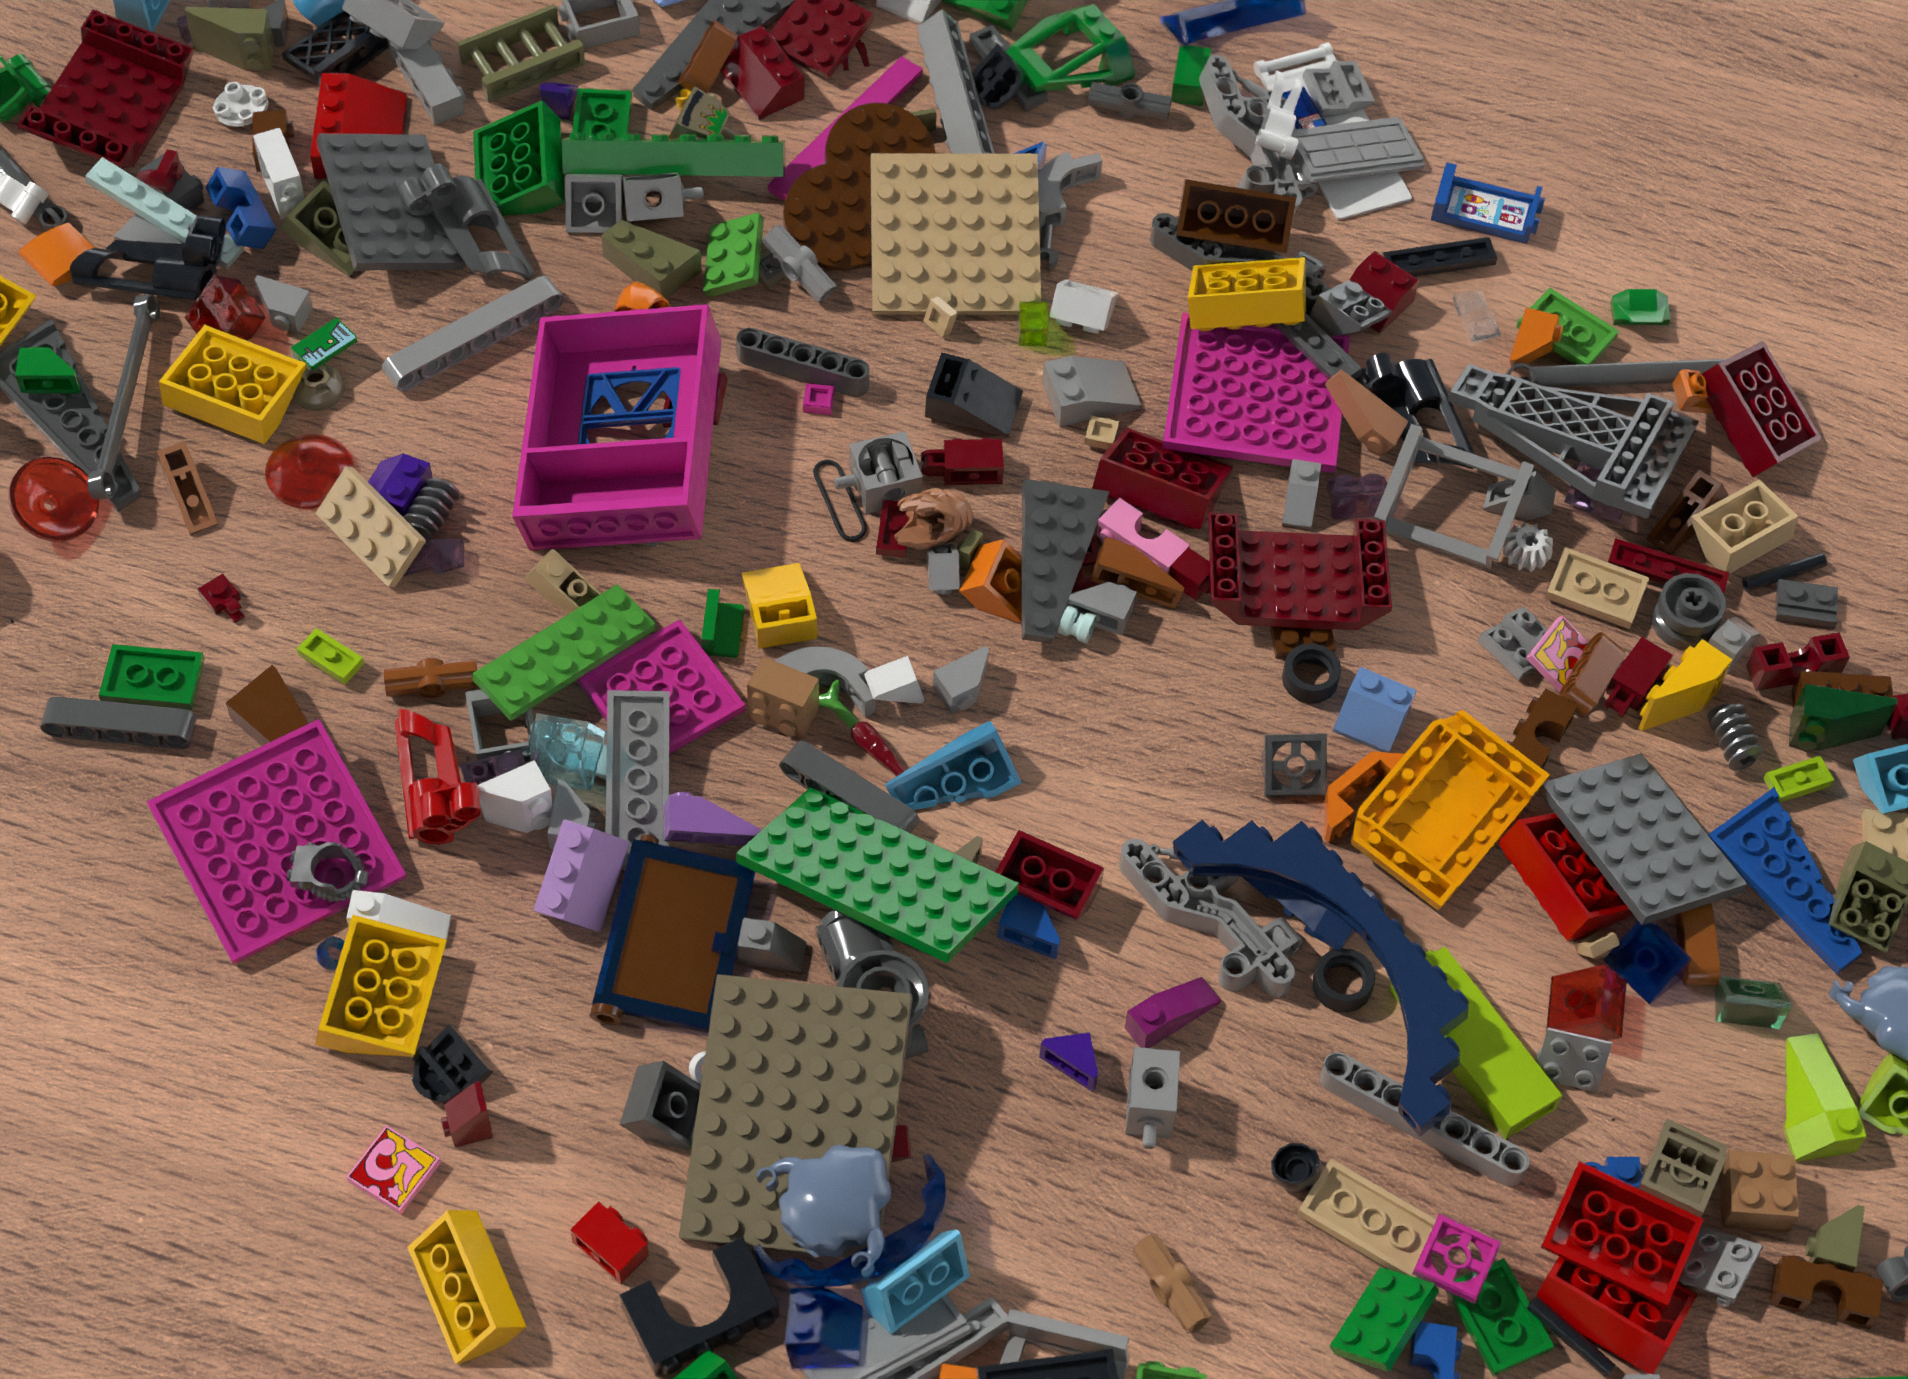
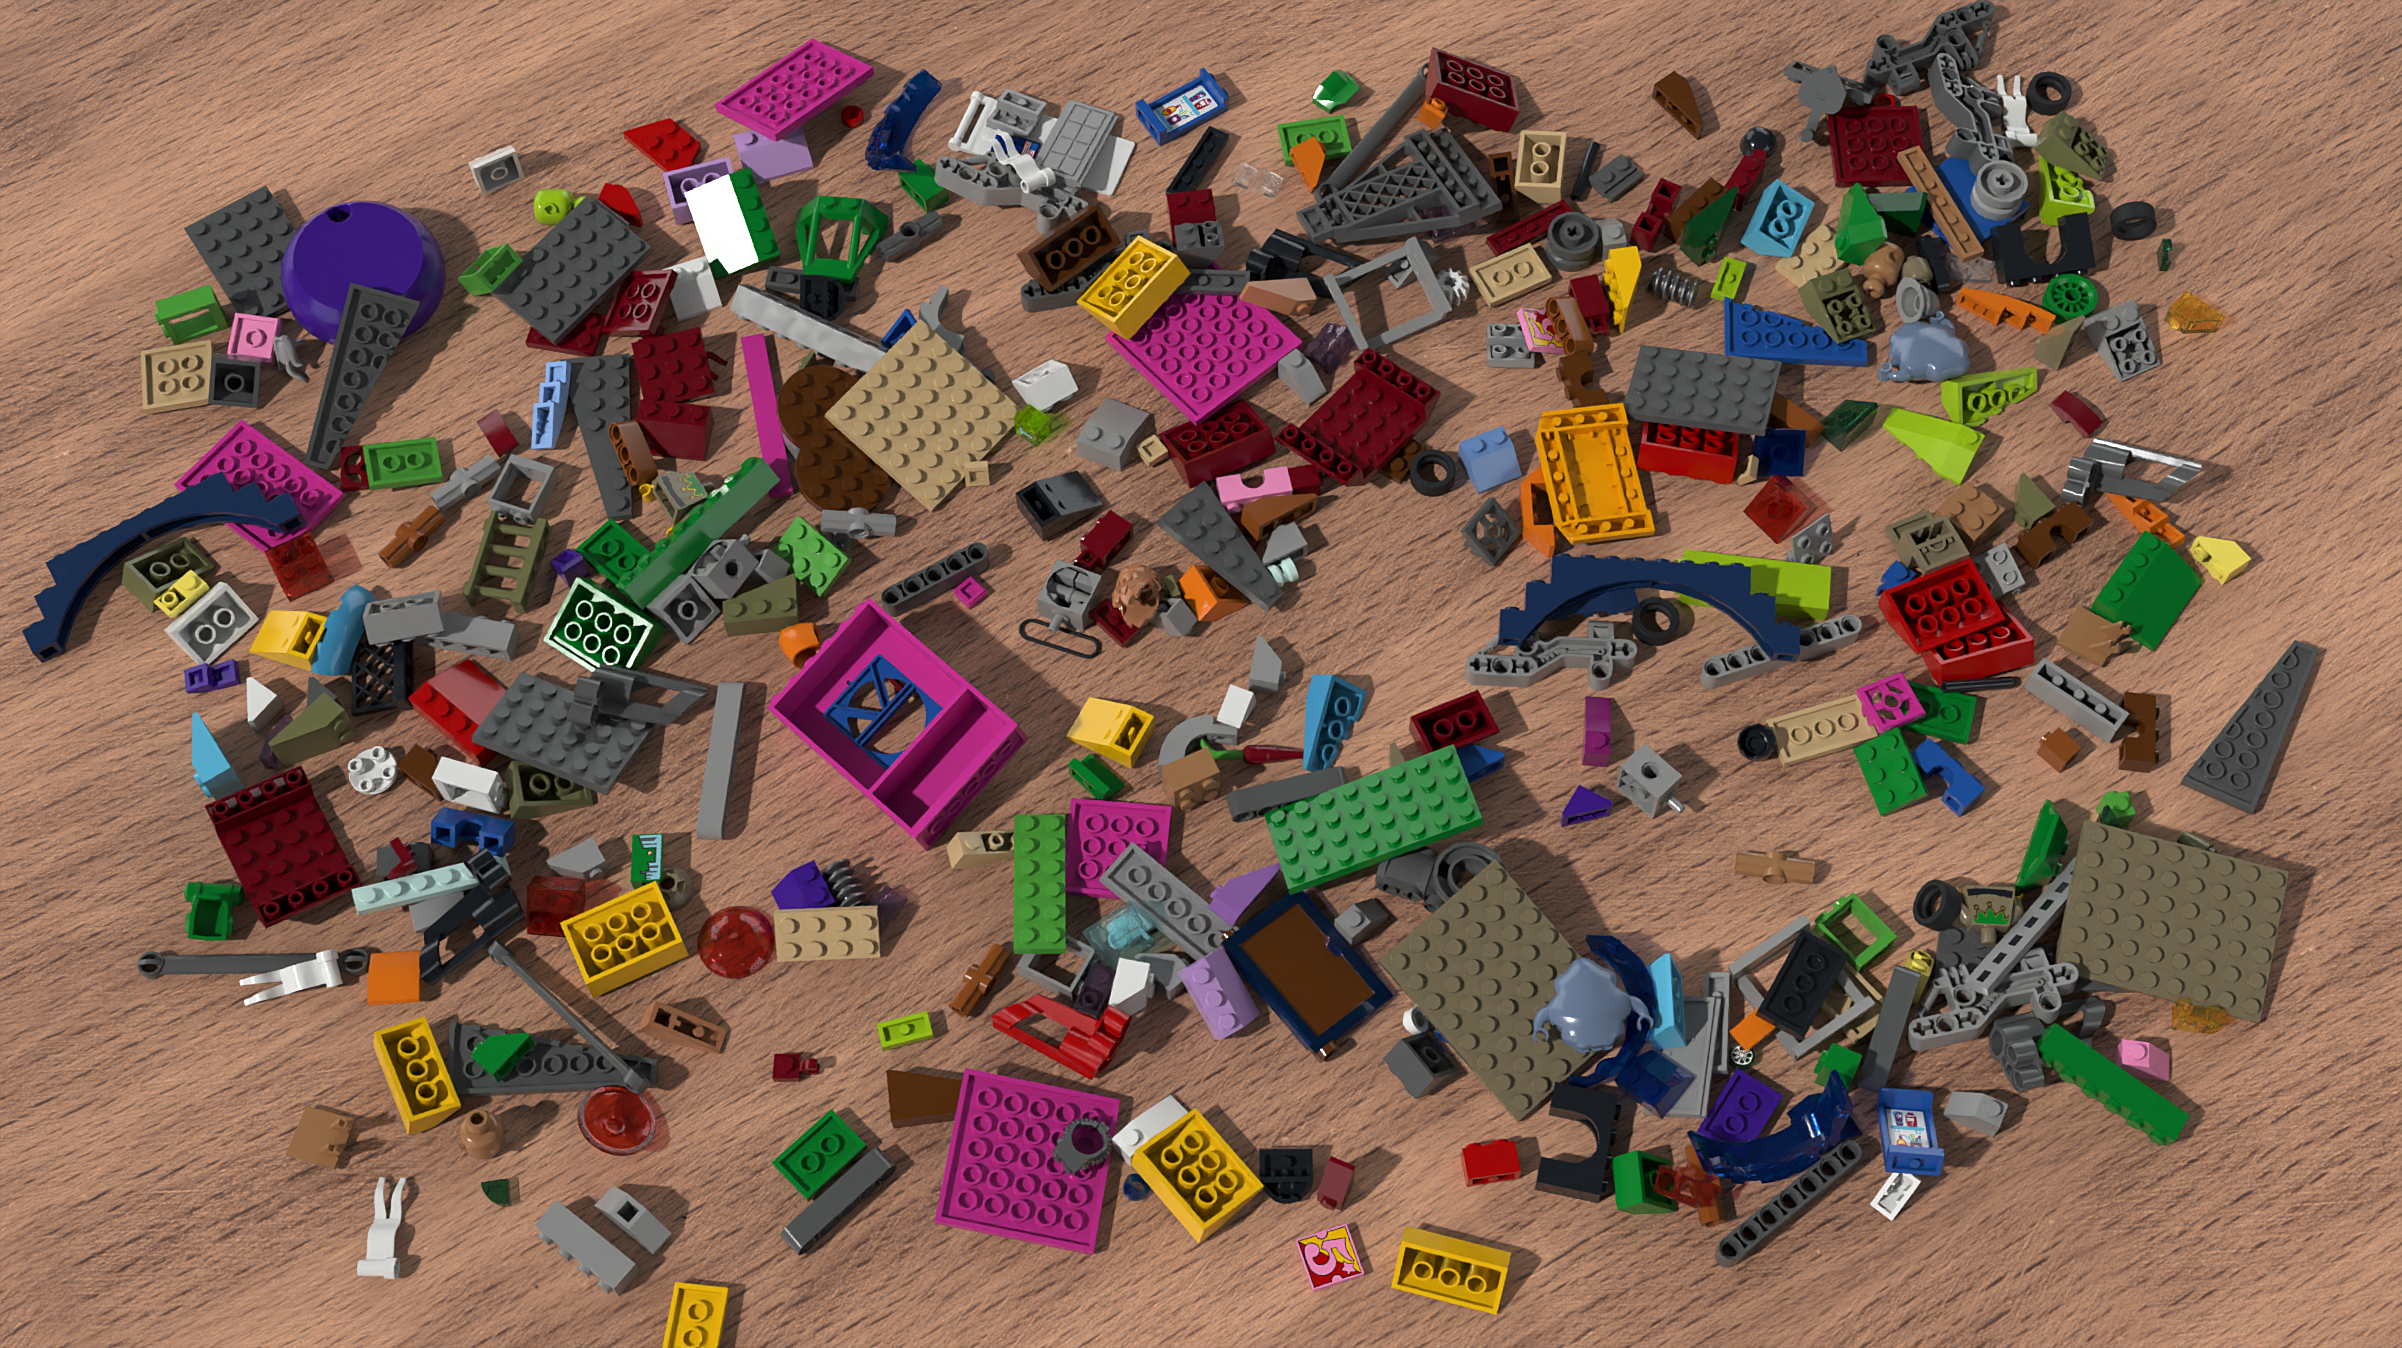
camera: 45 degrees left, 5 degrees up
(689, 229) = (769, 568): none -> light grey slope

